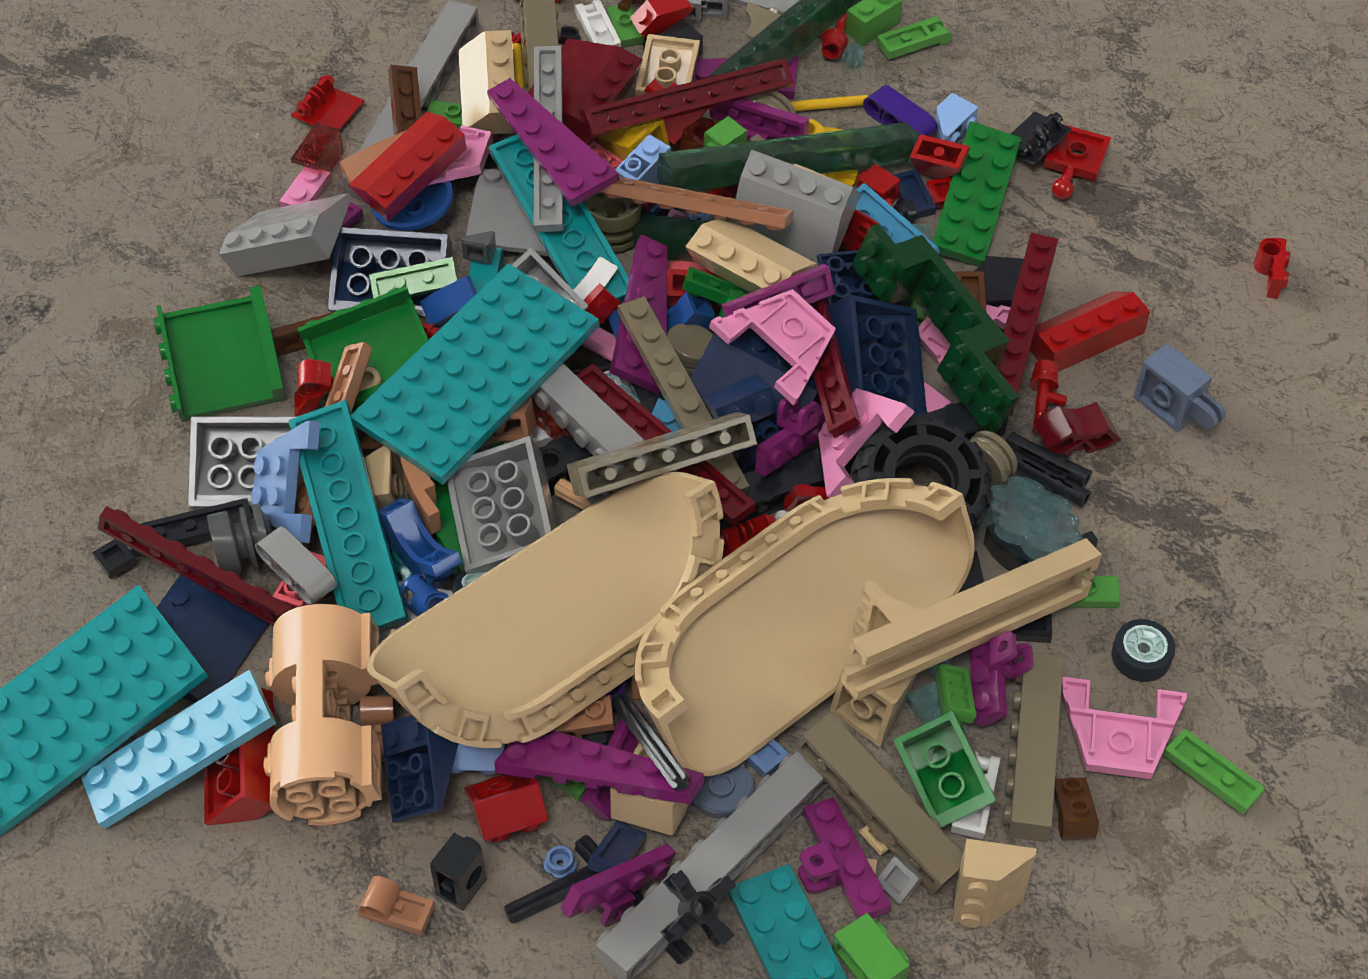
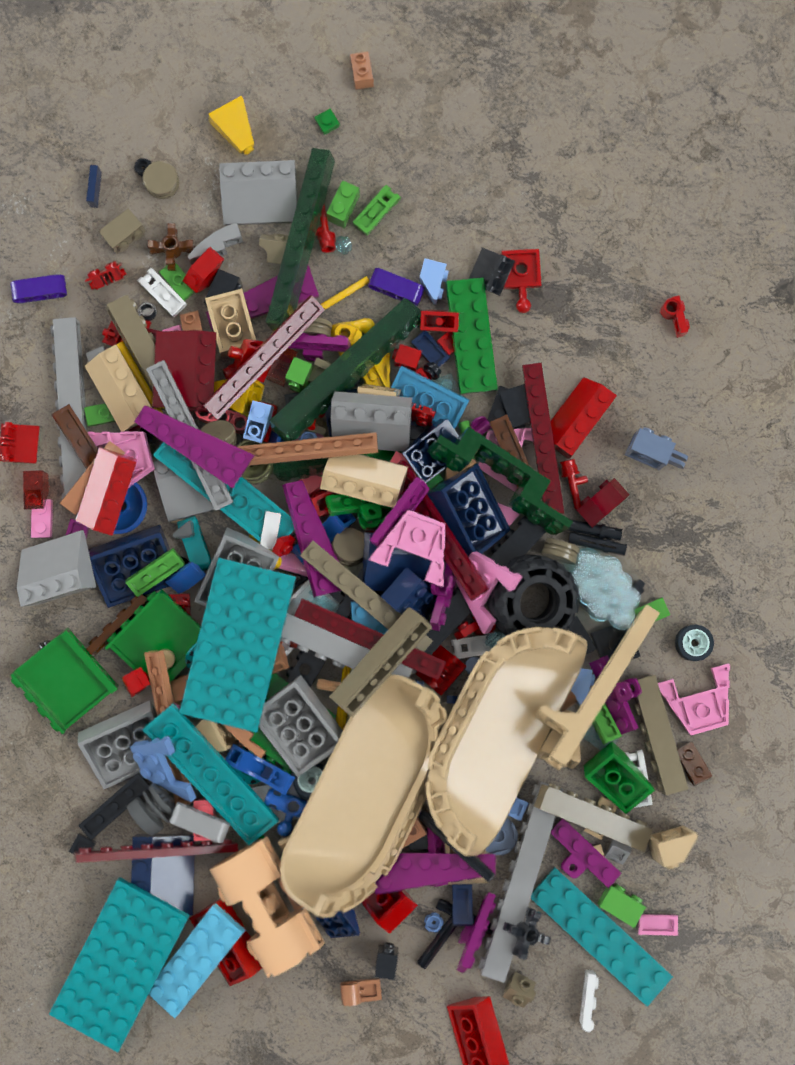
camera: 25 degrees left, 30 degrees up
(1214, 771) = (759, 706): bright green plate -> none

